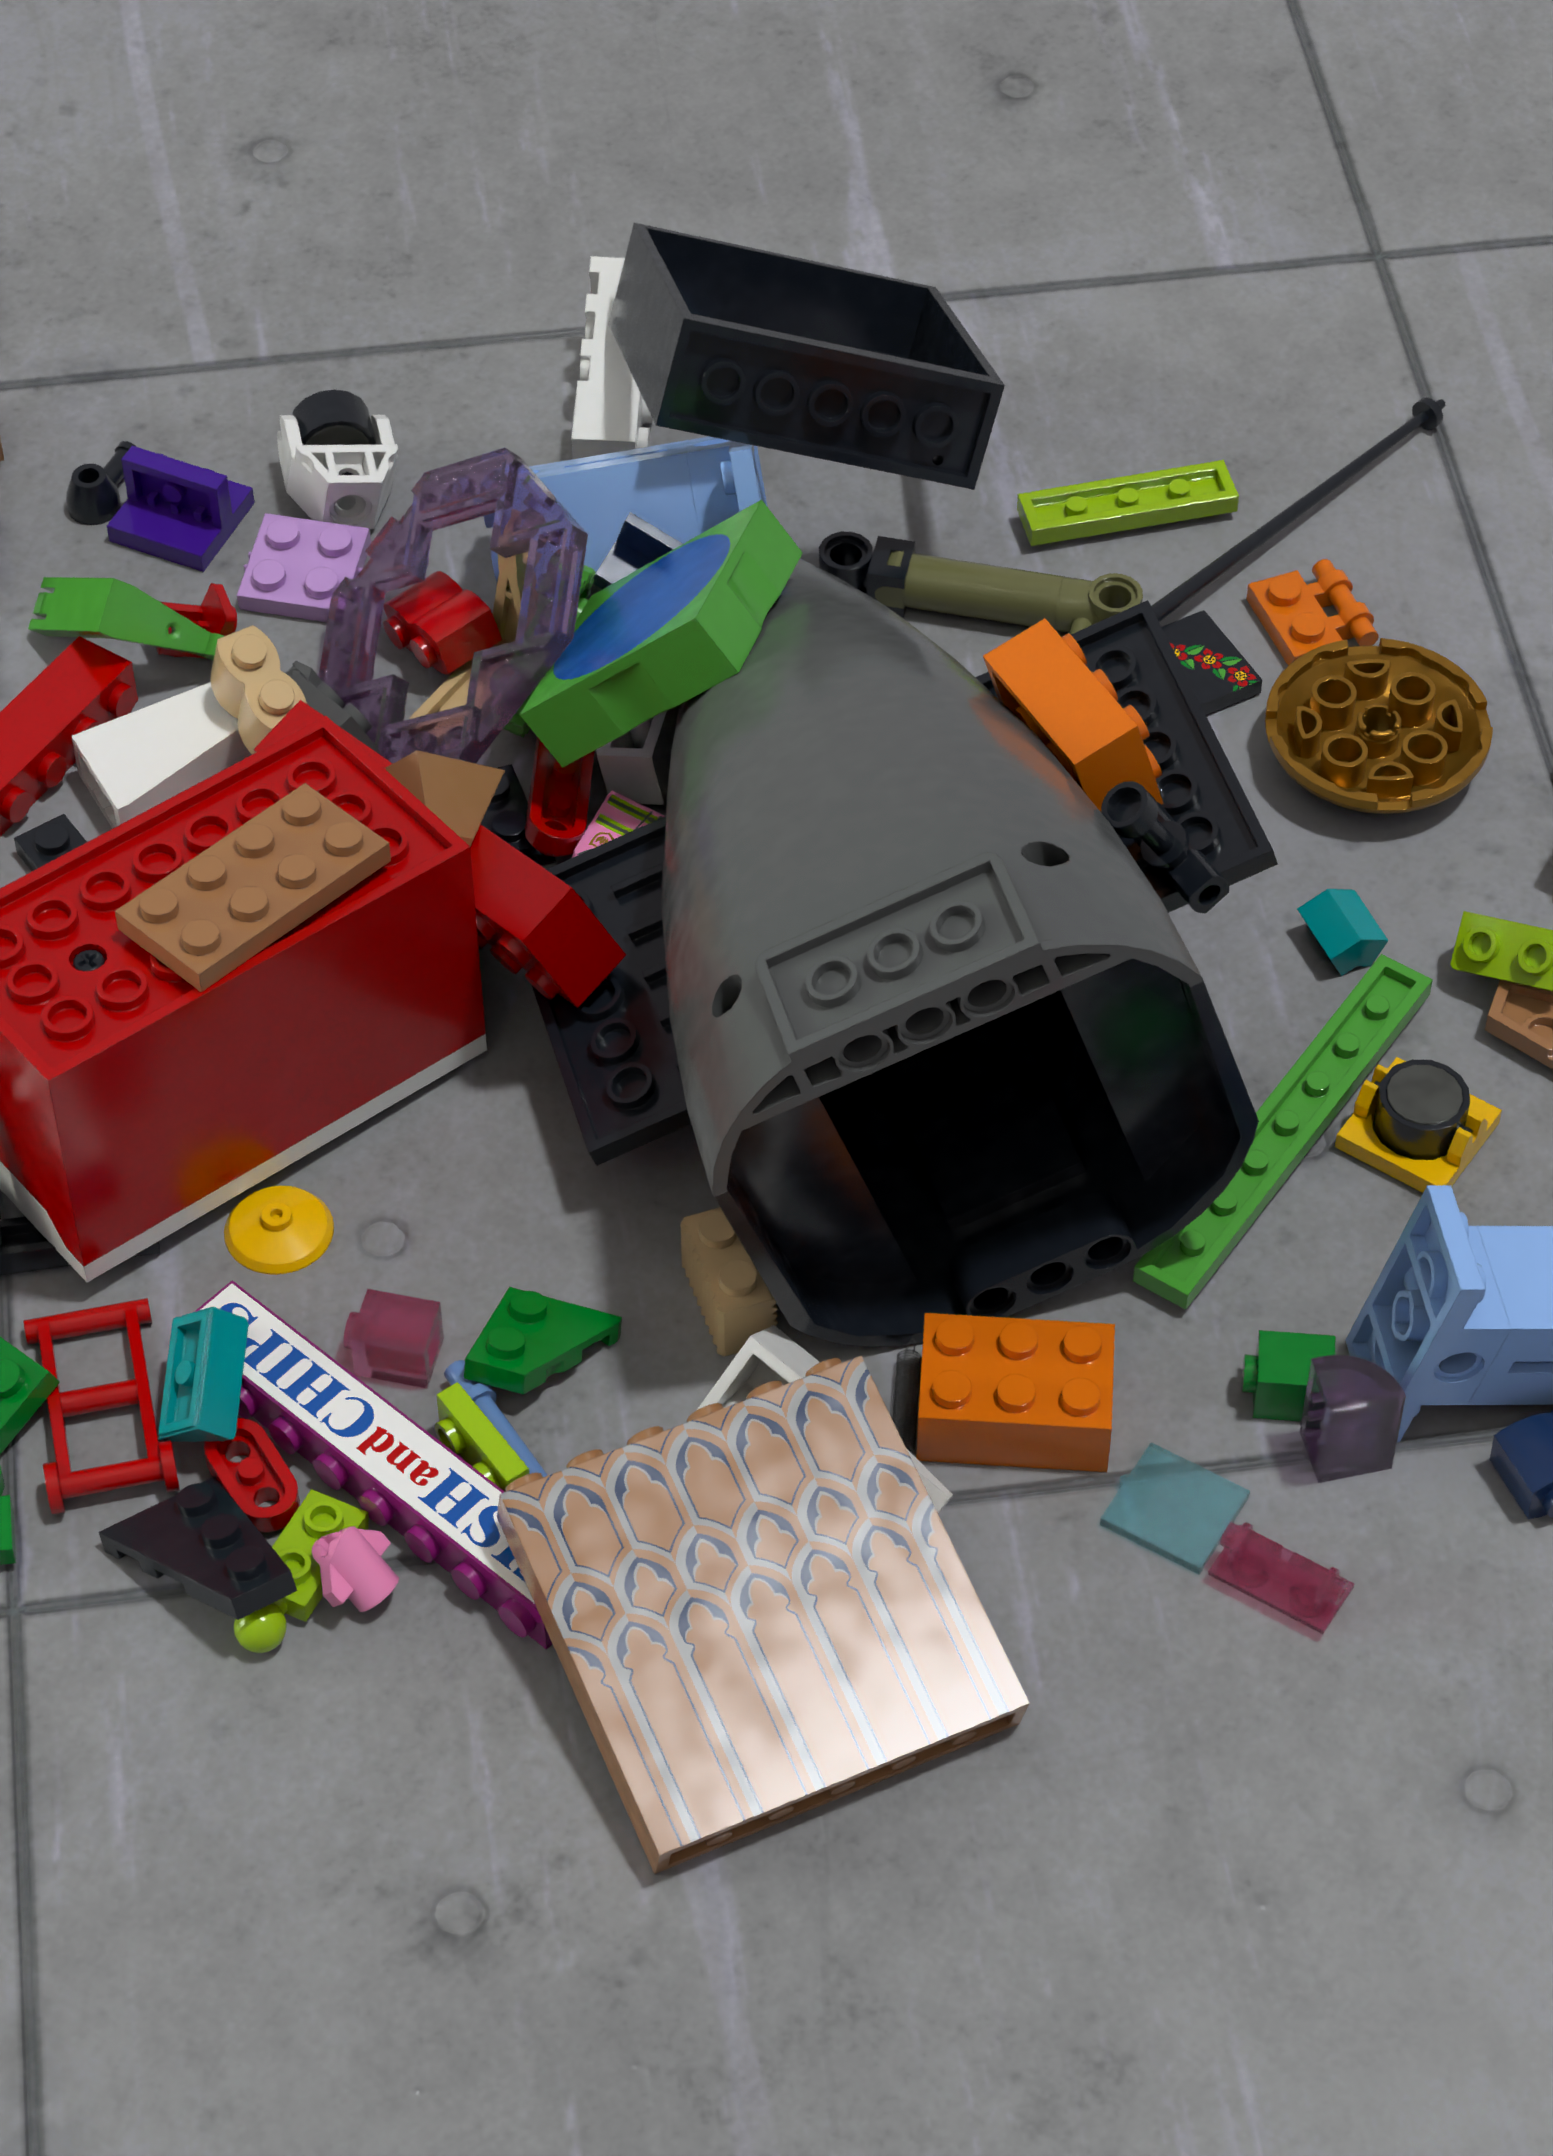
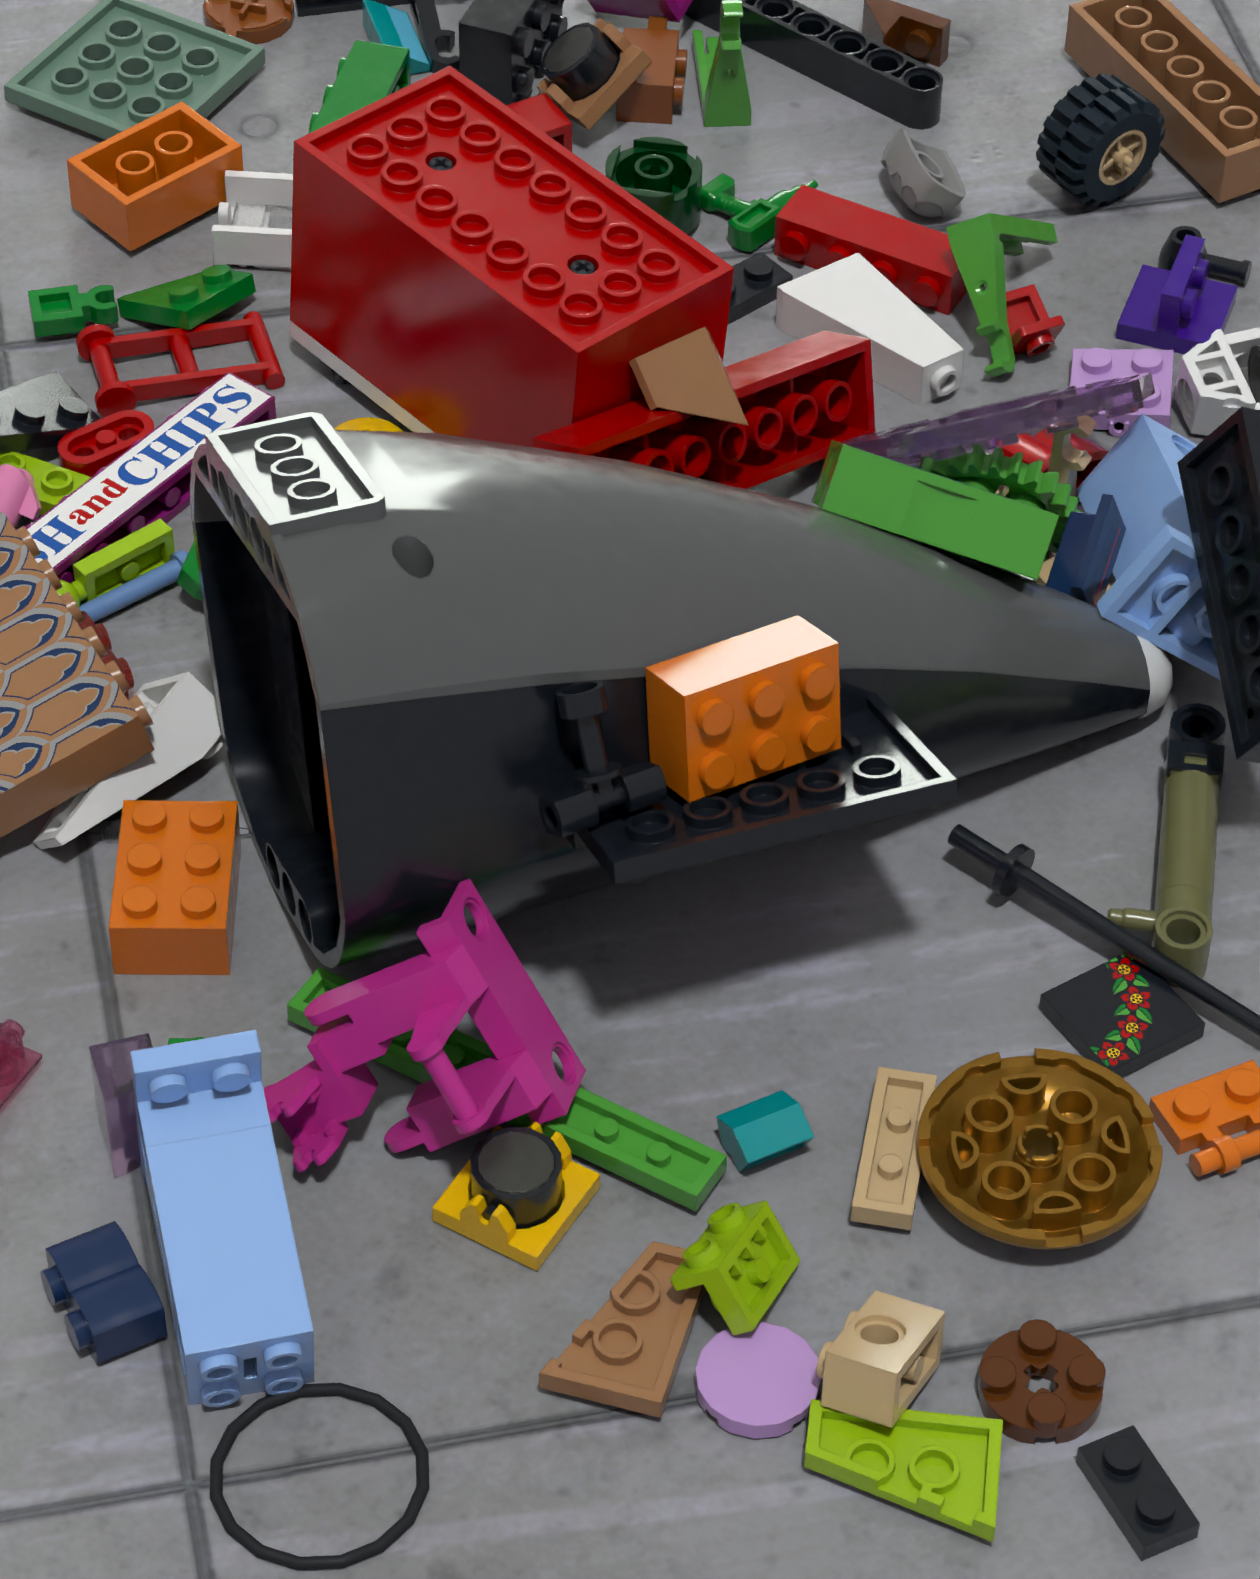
camera: 85 degrees right, 5 degrees down
(203, 1376) = (175, 389): teal slope -> none
(251, 685) = (905, 331): tan brick -> none
(252, 887) = (510, 228): medium nougat plate -> none
(328, 703) = (911, 395): dark grey hinge -> none
(1174, 1507) = (72, 1013): clear light blue piece -> none
(1326, 1142) = (431, 997): none -> dark pink container
(1358, 839) = (889, 1157): none -> tan plate

